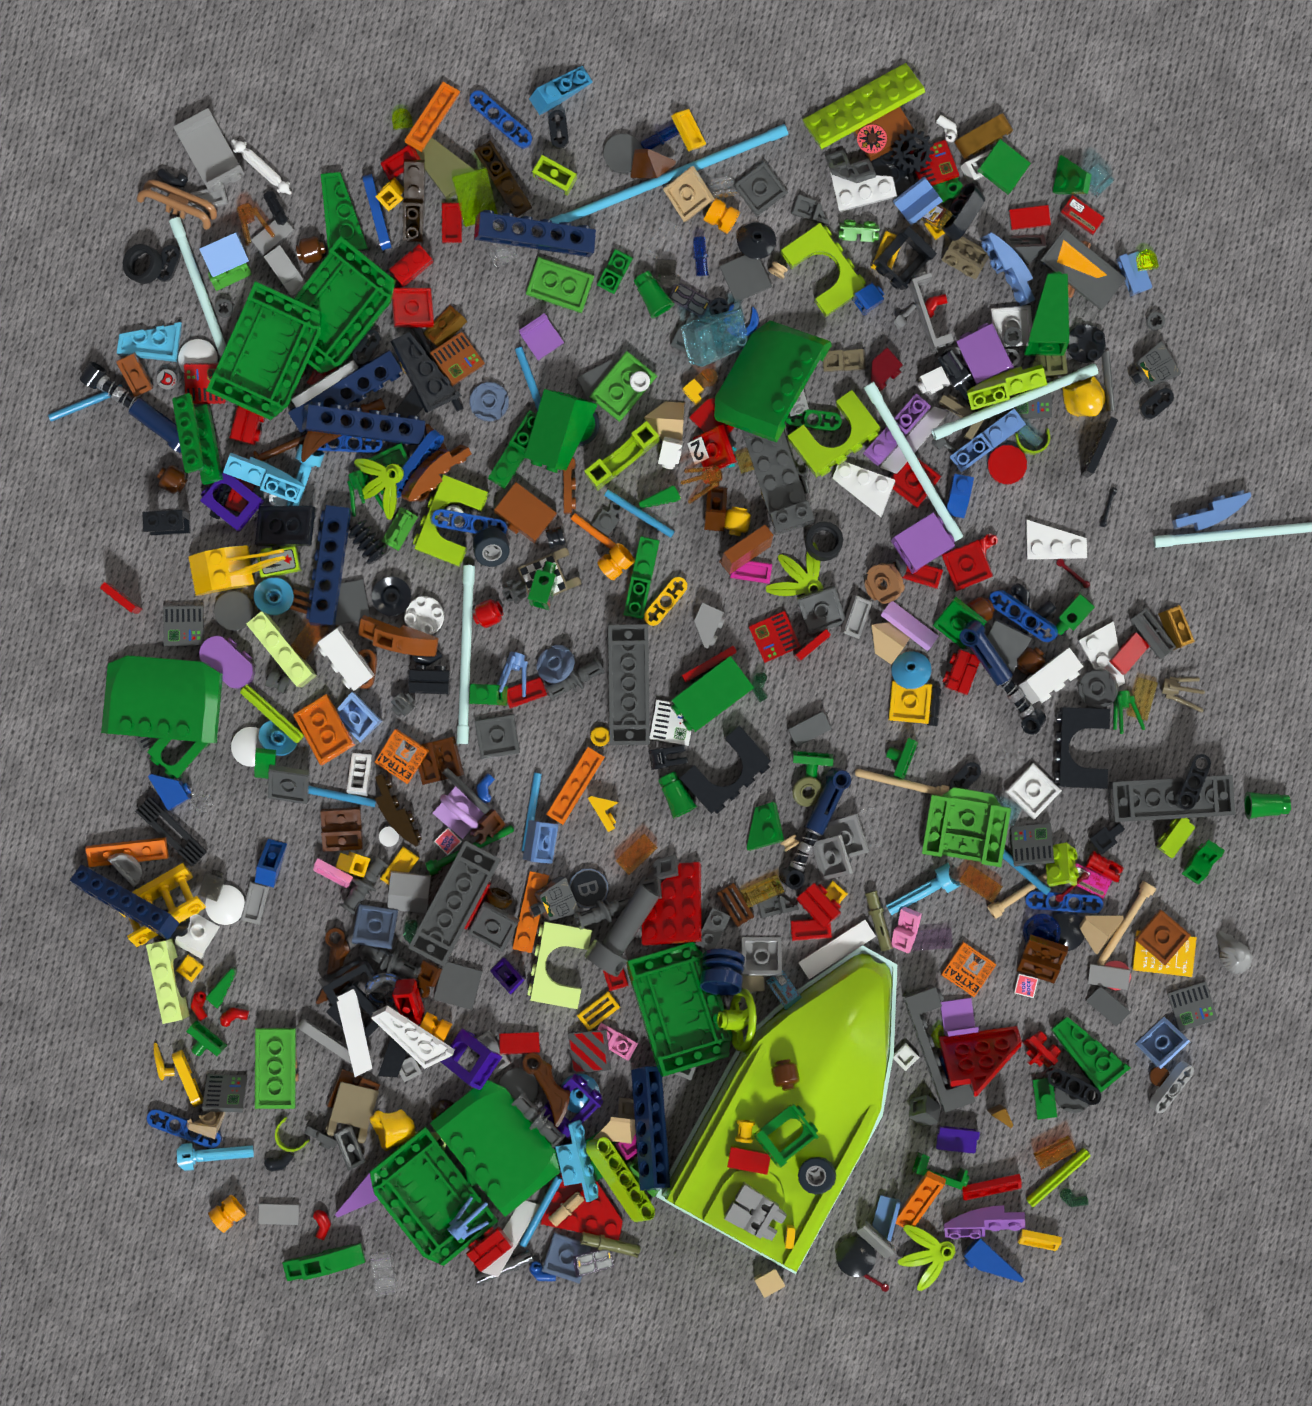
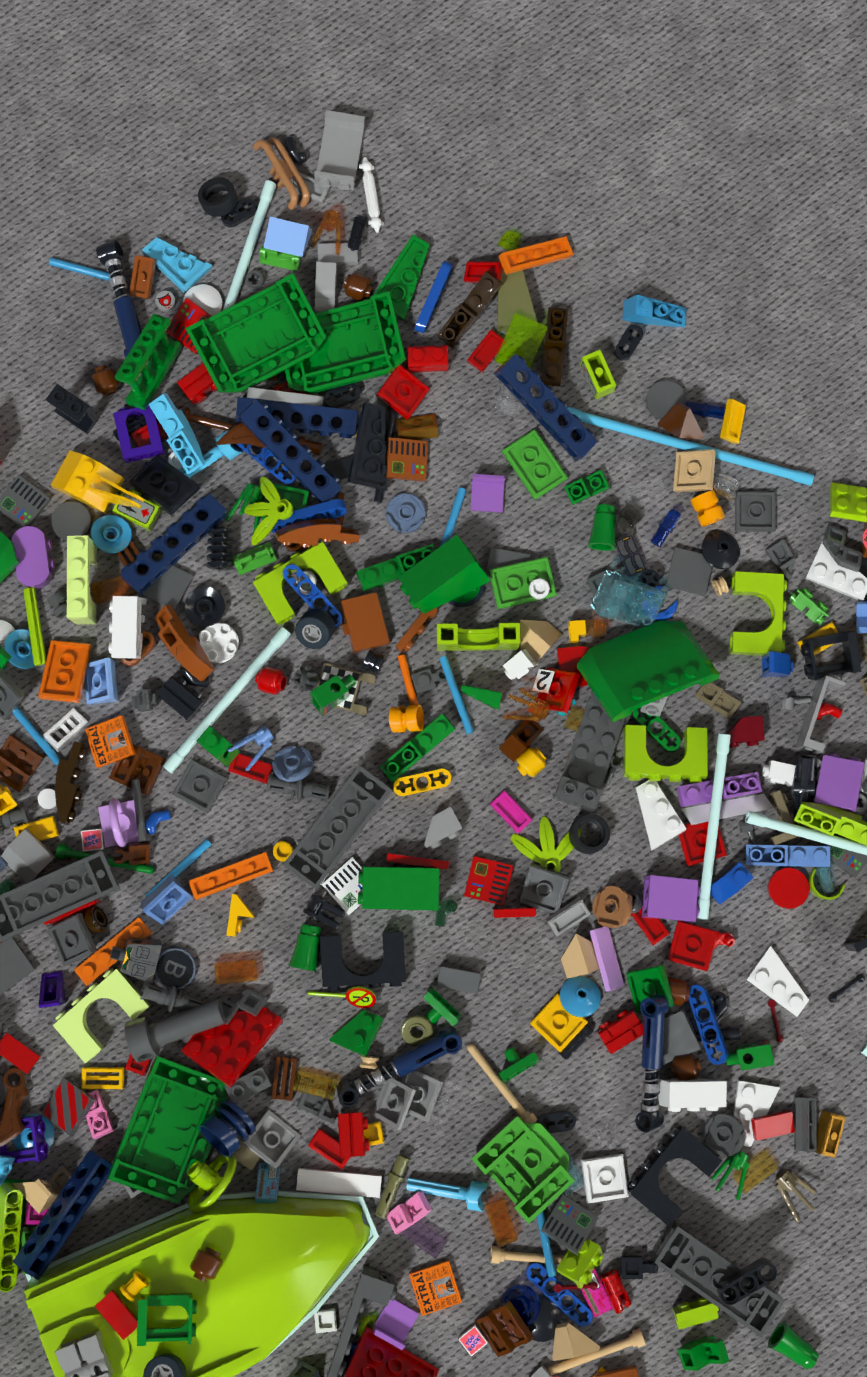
camera: 35 degrees right, 5 degrees down
(390, 194) = (455, 290): yellow brick -> none
(501, 119) = (591, 300): blue beam -> none
(741, 801) = (356, 996): none -> lime piece
(747, 549) = (521, 791): dark orange container -> none

